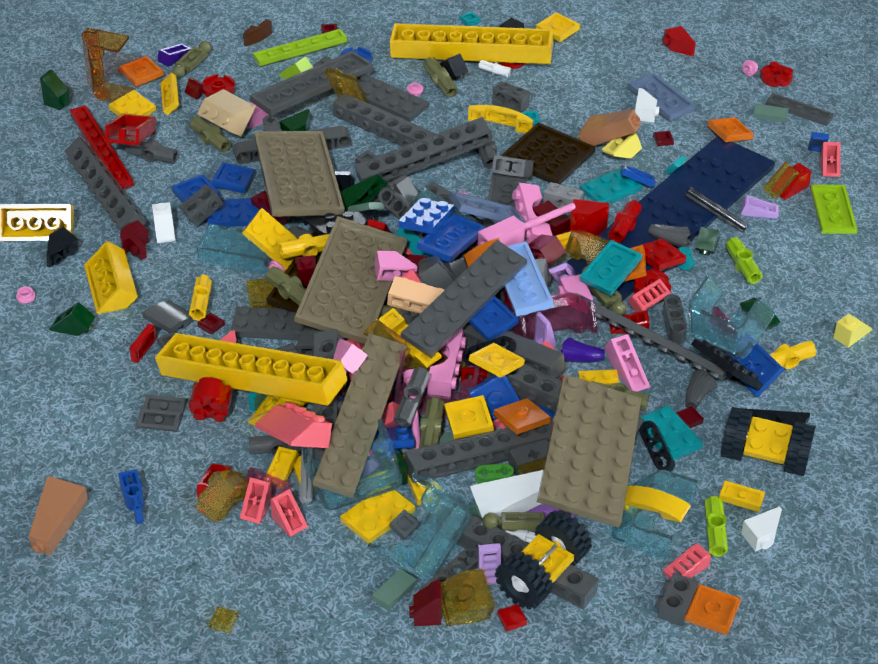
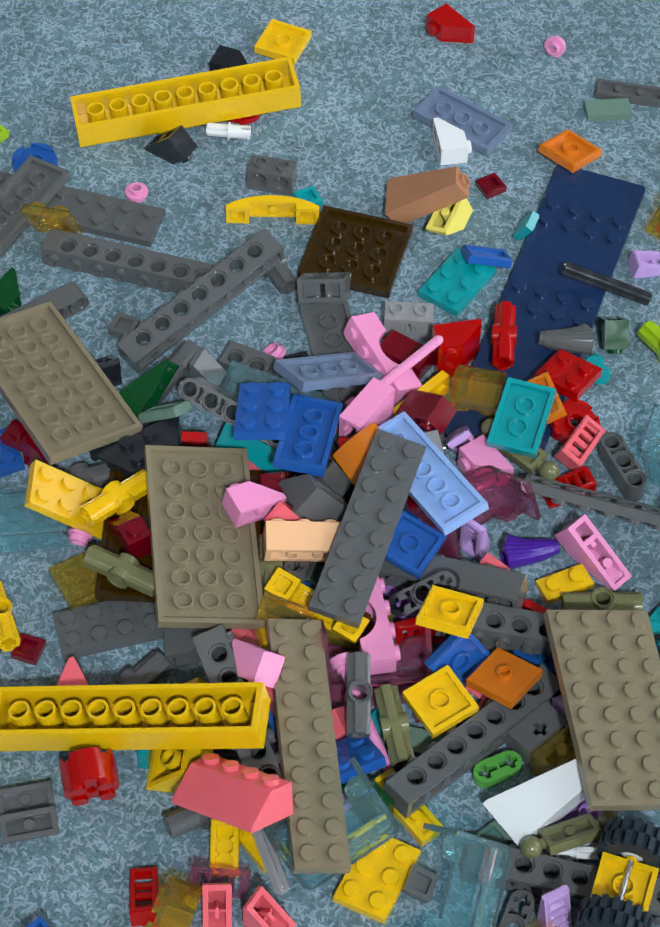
camera: 20 degrees left, 10 degrees up
(440, 77) = (164, 165): olive piece -> none
(469, 19) = (159, 56): teal tile -> none
(783, 74) = (601, 50): red plate -> none

